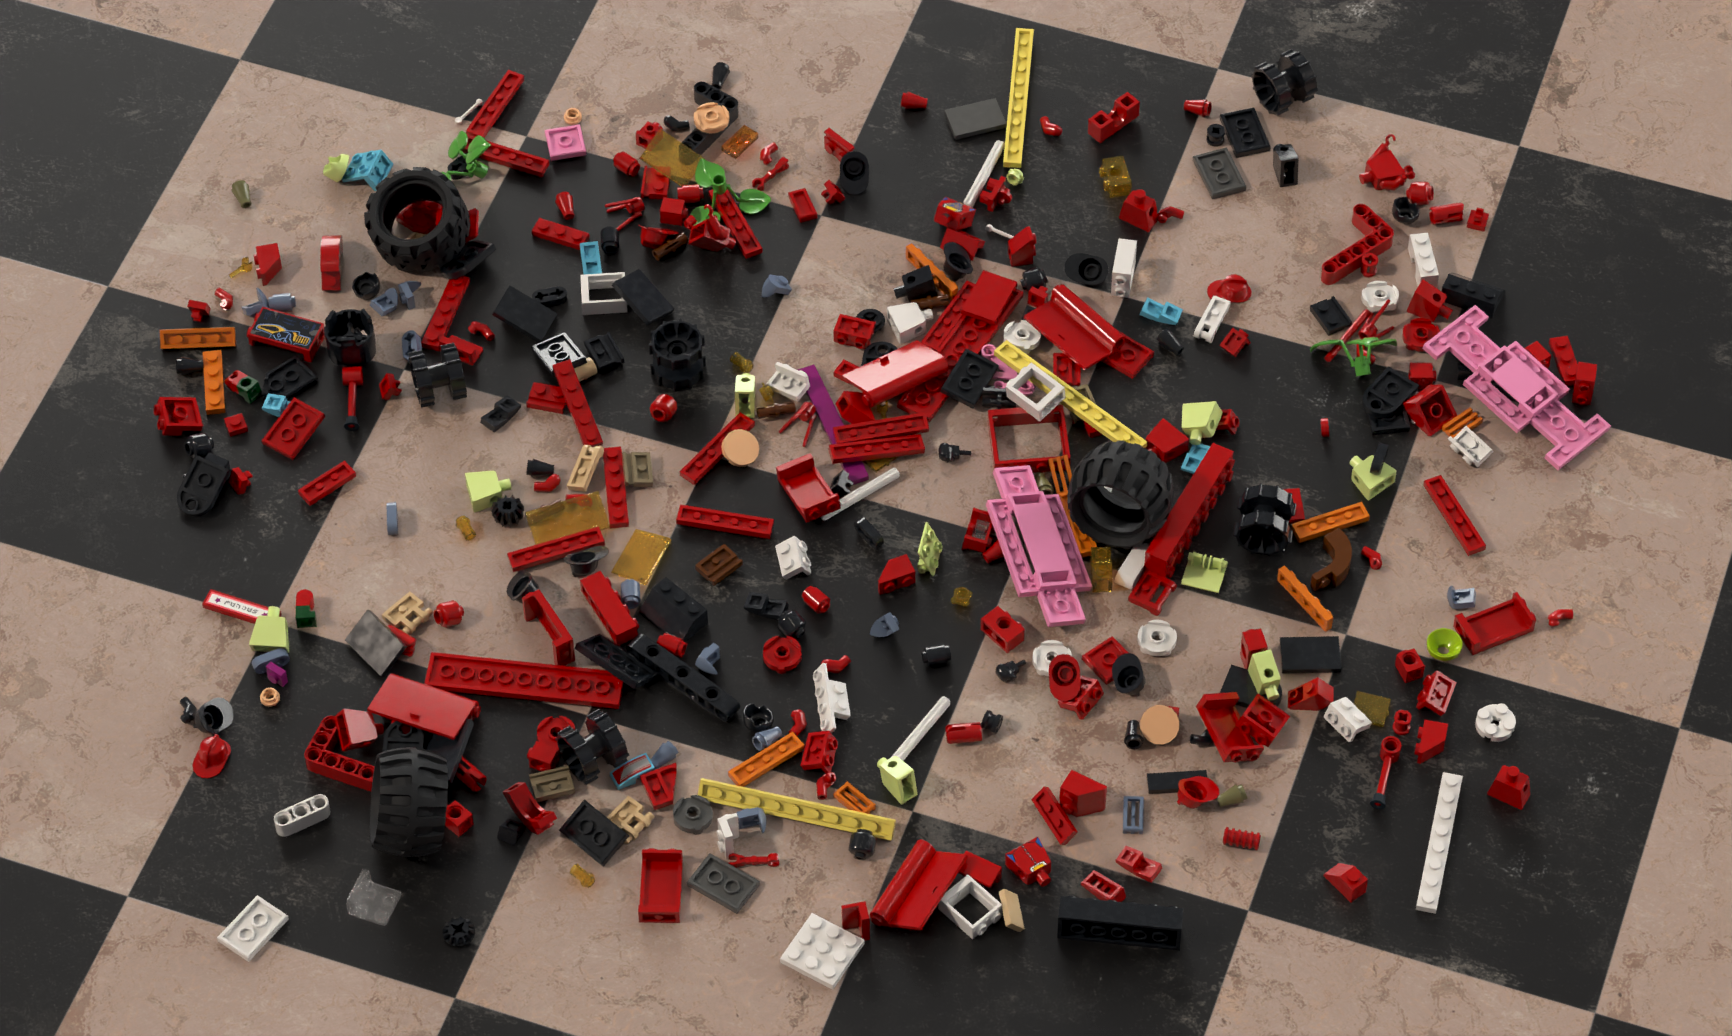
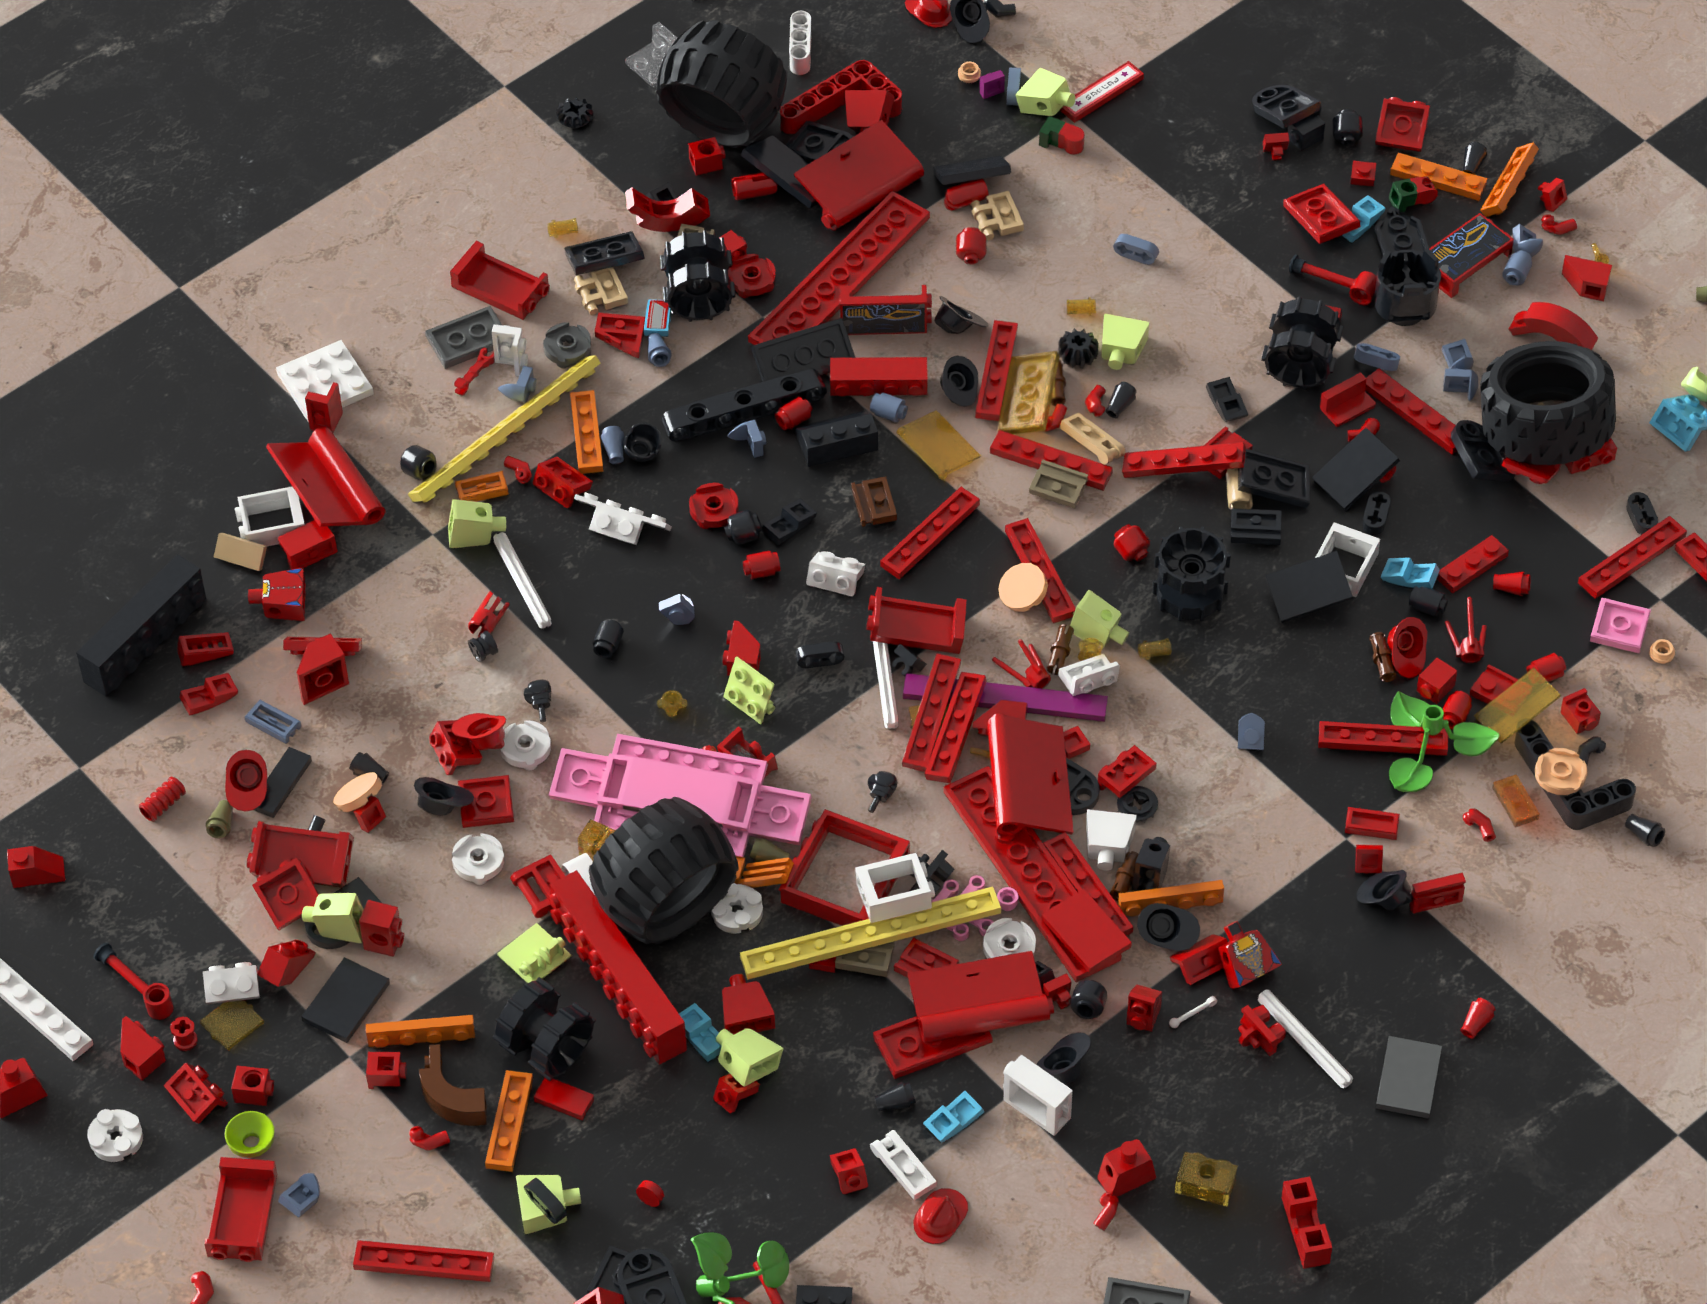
camera: 120 degrees right, 0 degrees up
(327, 483) = (1224, 215): red plate -> none
(366, 286) = (1493, 346): black hair -> none
(475, 149) = (1624, 514): bright green plant -> none
(709, 233) = (1365, 687): red torso -> none
(782, 165) = (1450, 826): red piece -> none
(800, 721) = (615, 483): red arm -> none
(836, 666) = (665, 541): red arm -> none
(969, 378) = (975, 852): black tile -> none
(1005, 638) = (596, 715): red brick -> none
(1015, 176) = (1278, 1068): yellowish green plate -> none
(1018, 98) = (1417, 1141): light yellow plate -> none
(1049, 128) = (1342, 1149): red arm -> none
(1346, 601) = (385, 1069): none -> red brick

